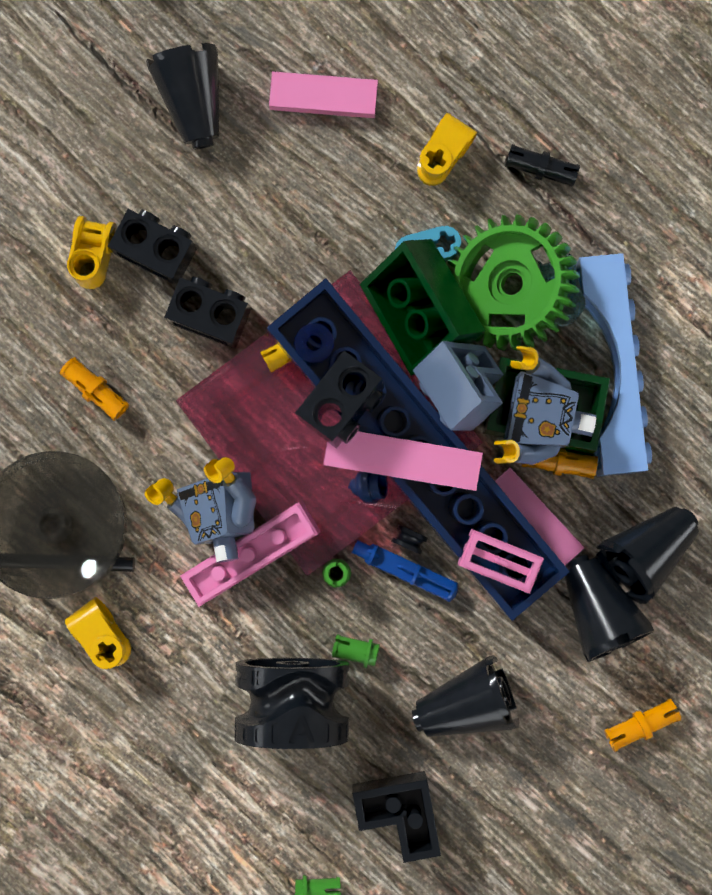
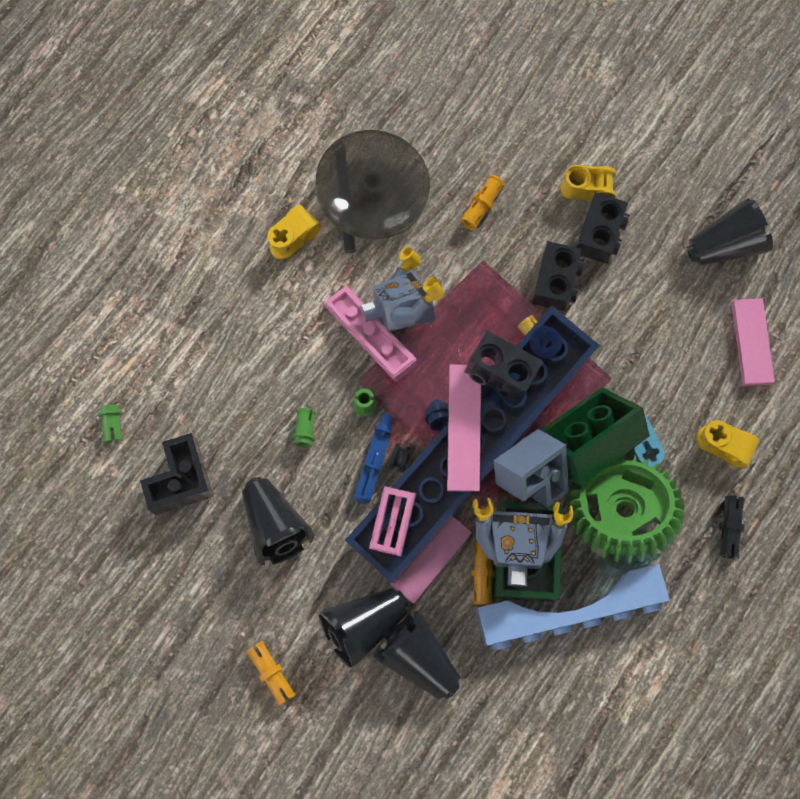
camera: 80 degrees right, 10 degrees down
(291, 703) = (257, 376): black piece -> none

